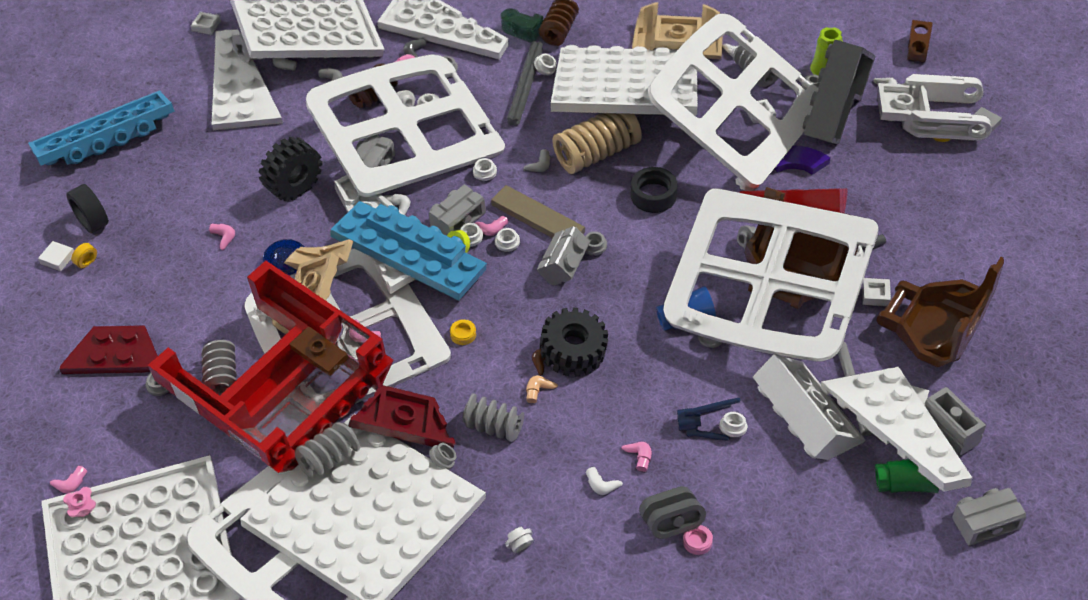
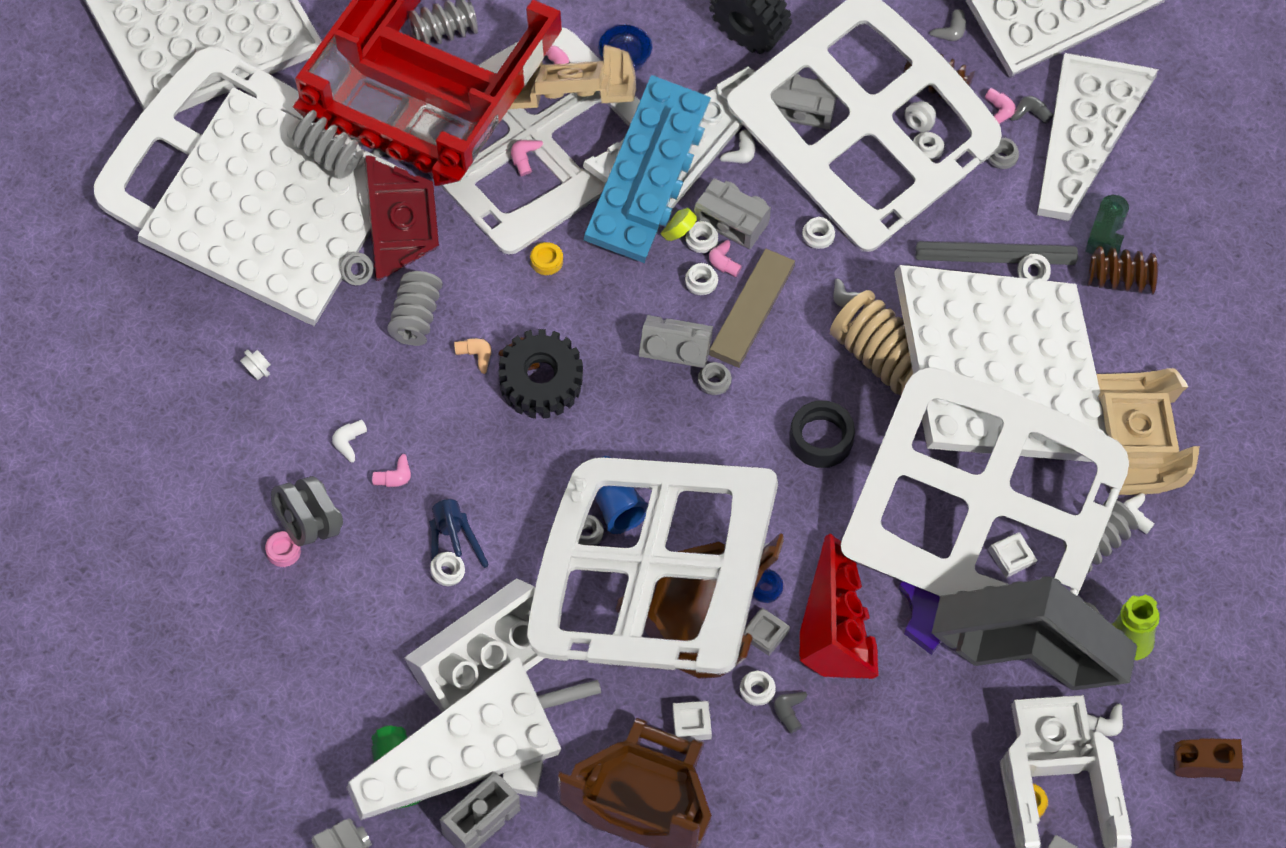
camera: 75 degrees right, 10 degrees up
(319, 351) = (453, 103): reddish brown plate -> none

